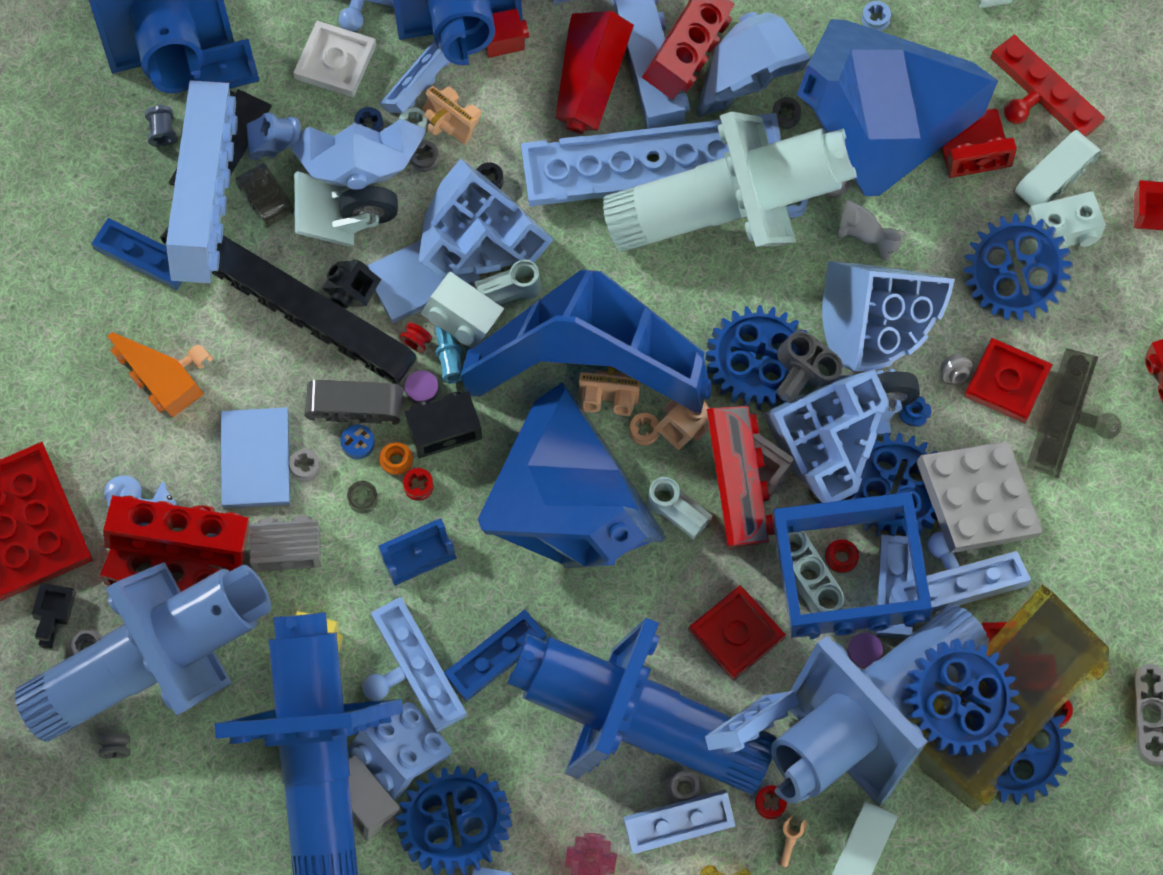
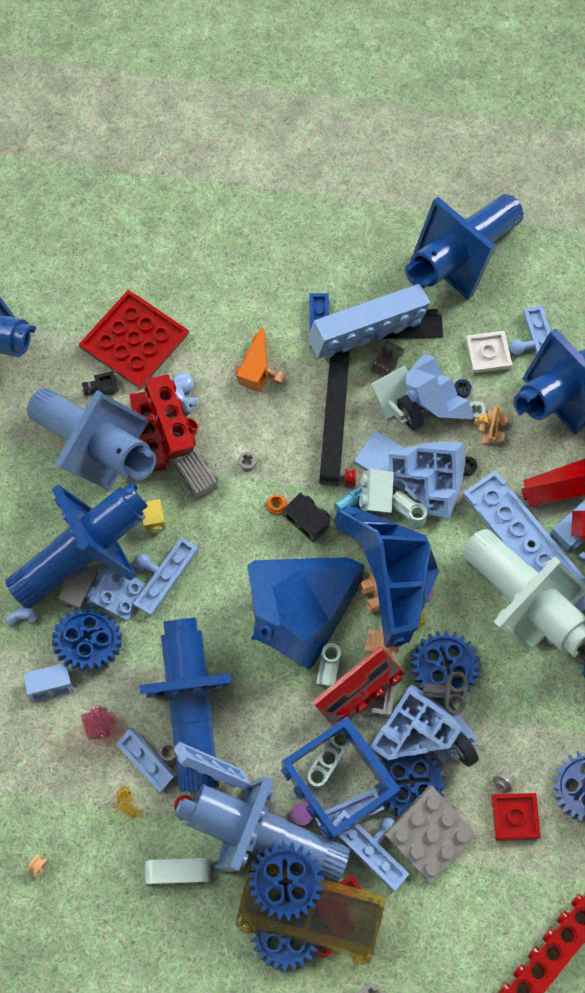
camera: 60 degrees right, 0 degrees up
(114, 746) = (45, 452): dark grey bush -> none
(160, 125) = (399, 285): sand blue bush -> none
(229, 64) = (448, 301): blue hinge -> none
(255, 458) = (238, 435): light blue tile -> none
(271, 135) = (421, 344): medium blue piece -> none
(351, 283) = (362, 434): black brick -> none
(354, 400) = (295, 464): dark grey beam -> none
(355, 490) = (242, 504): clear smoke bush -> none
(357, 441) = (275, 480): blue tile -> none
(415, 80) = (489, 397): light blue plate -> none
(417, 552) = (228, 542): blue hinge -> none
(420, 474) = (262, 525): red bush -> none
(421, 387) = (324, 496): medium lavender tile -> none
(427, 164) = (464, 422): flat silver bush -> none
(493, 656) = (181, 608): blue plate -> none
(509, 33) = (558, 427): red brick -> none
(634, 430) = (361, 621): light nougat bush -> none
(736, 632) = (273, 735): red plate -> none
(791, 837) = (169, 827): light nougat hand -> none
(842, 546) = (356, 767): red plate -> none
(863, 224) = (562, 682): light grey animal -> none
(879, 312) = (511, 719): light blue brick -> none
(916, 419) = (460, 775): blue plate -> none
(1065, 412) = (515, 861): clear smoke plate -> none

